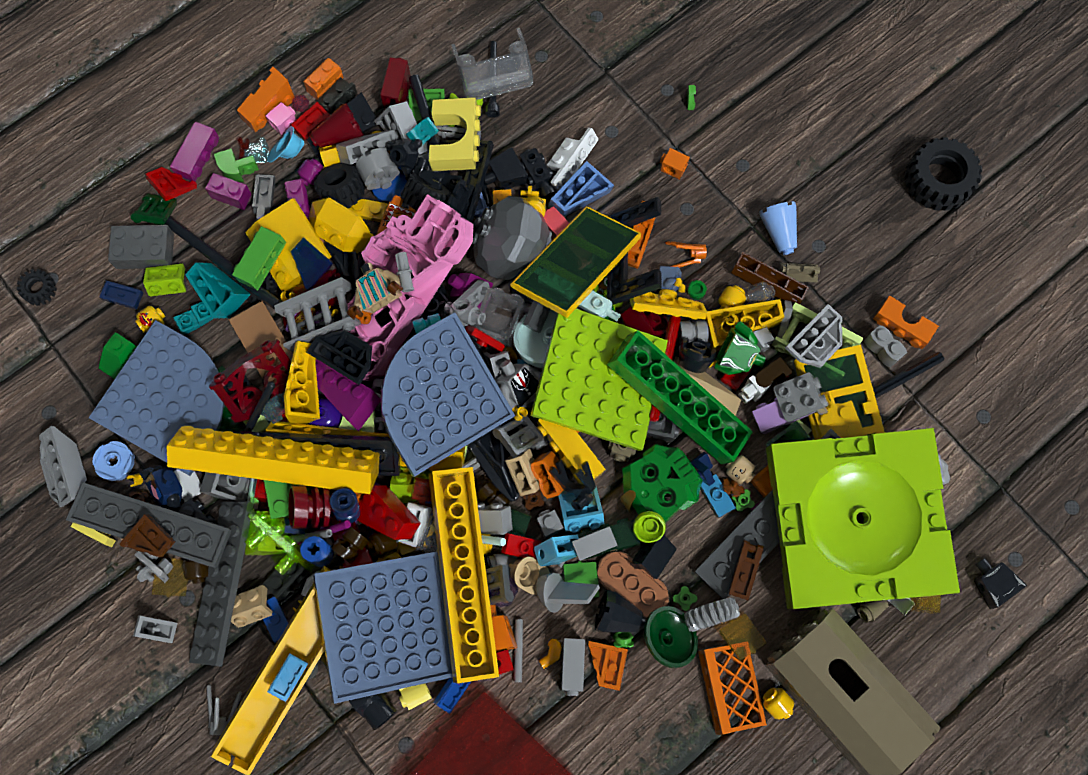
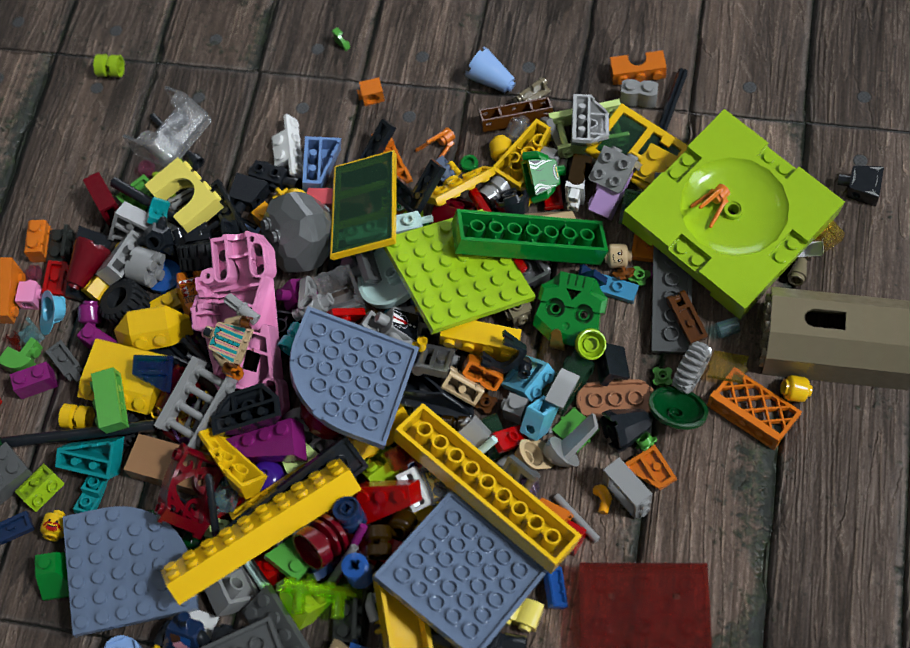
camera: 30 degrees left, 10 degrees down
(231, 245) = (76, 417): none -> yellow wheel
(451, 81) = (146, 164): none -> clear pink plate
(772, 605) = (727, 327): none -> clear light blue piece
(858, 496) = (716, 195): none -> orange plant

